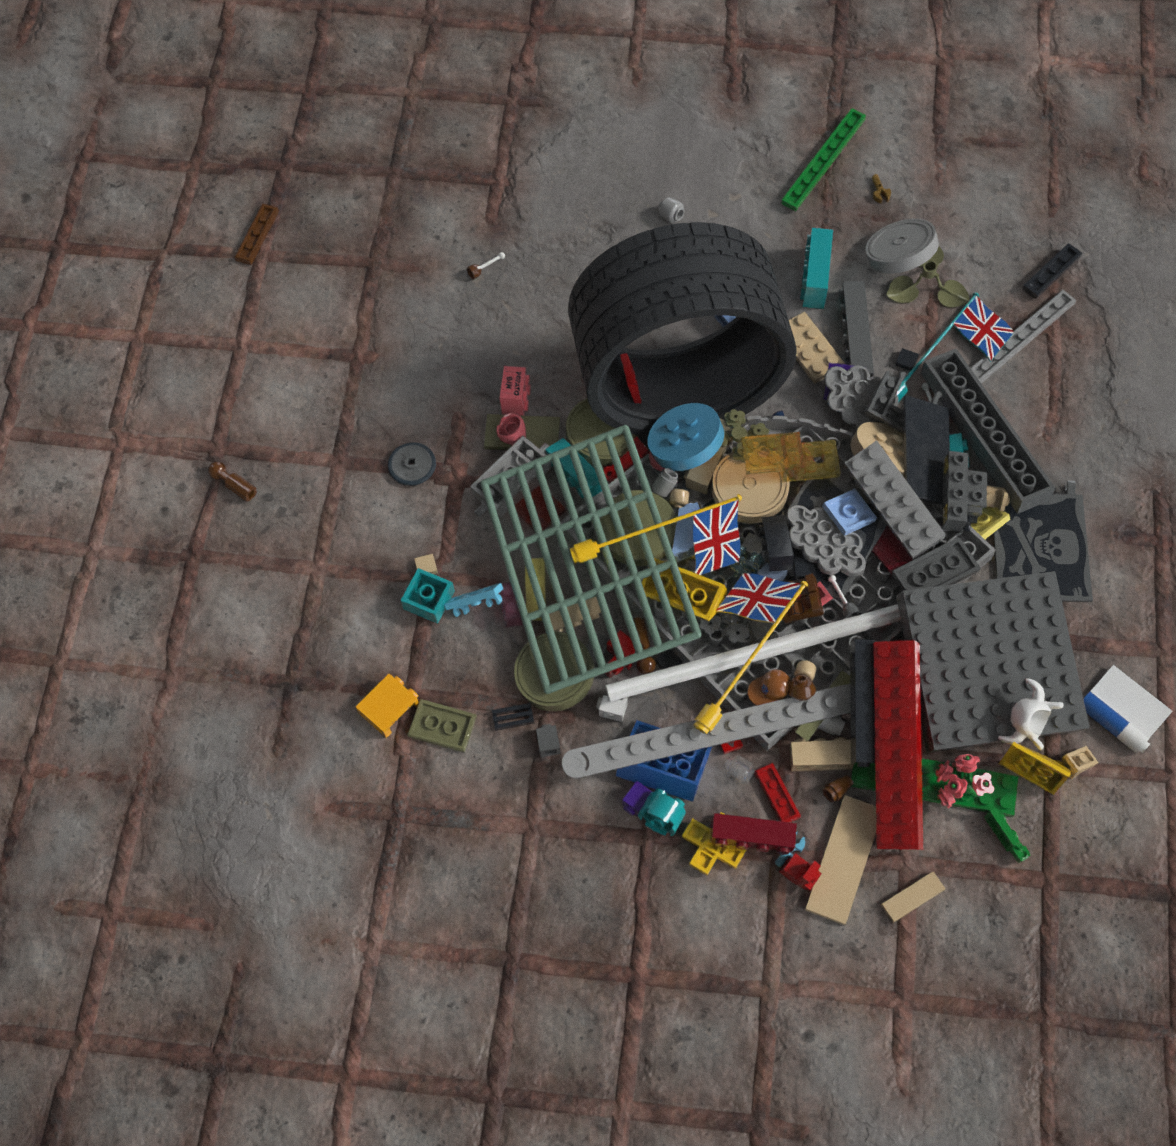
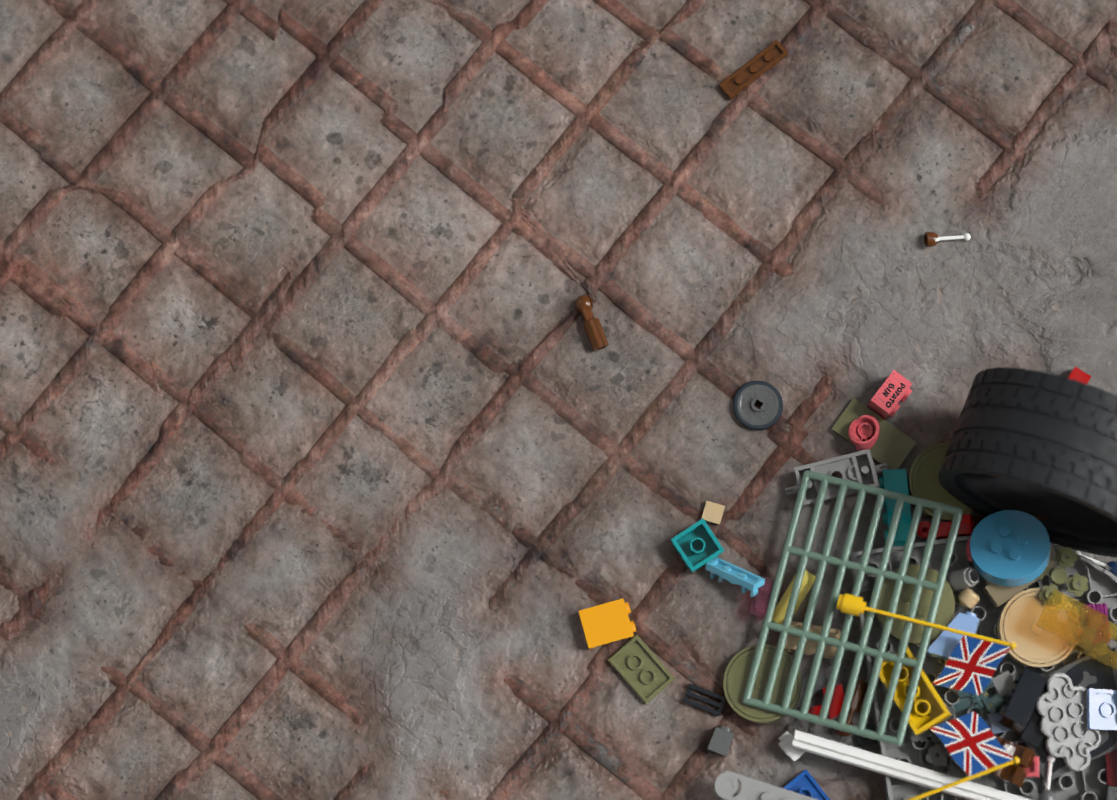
camera: 35 degrees right, 15 degrees up
(540, 507) = (844, 521): clear red plate -> none

